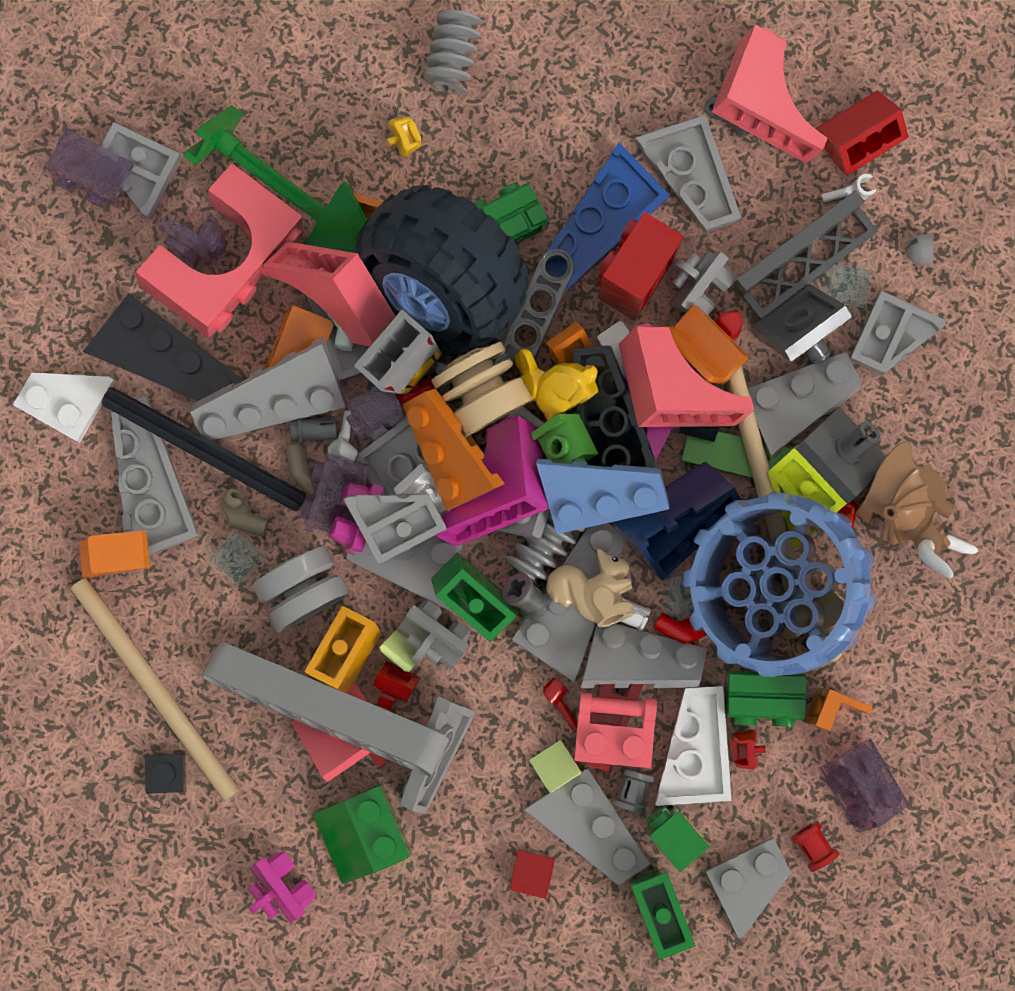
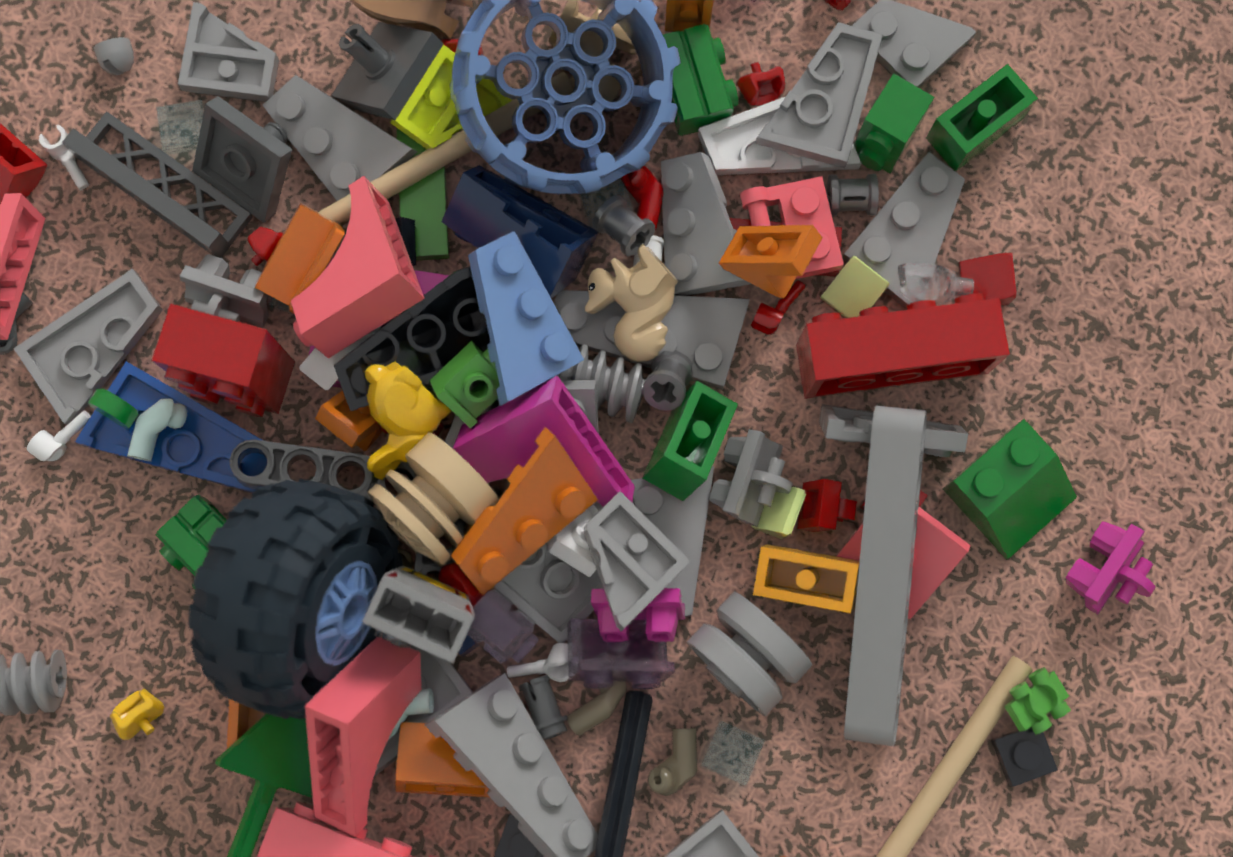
camera: 110 degrees left, 5 degrees down
(199, 793) = (1034, 702): none -> bright green piece
(494, 783) = (901, 346): none -> red brick
(539, 833) = (939, 281): none -> clear piece
(593, 701) = (771, 255): none -> orange slope
(613, 201) = (152, 422): none -> light aqua arm
(622, 122) = (51, 448): none -> white hand
(632, 176) = (113, 408): none -> green tile
(658, 600) = (623, 225): none -> flat silver bush
(712, 794) = (827, 101): none -> light grey wing

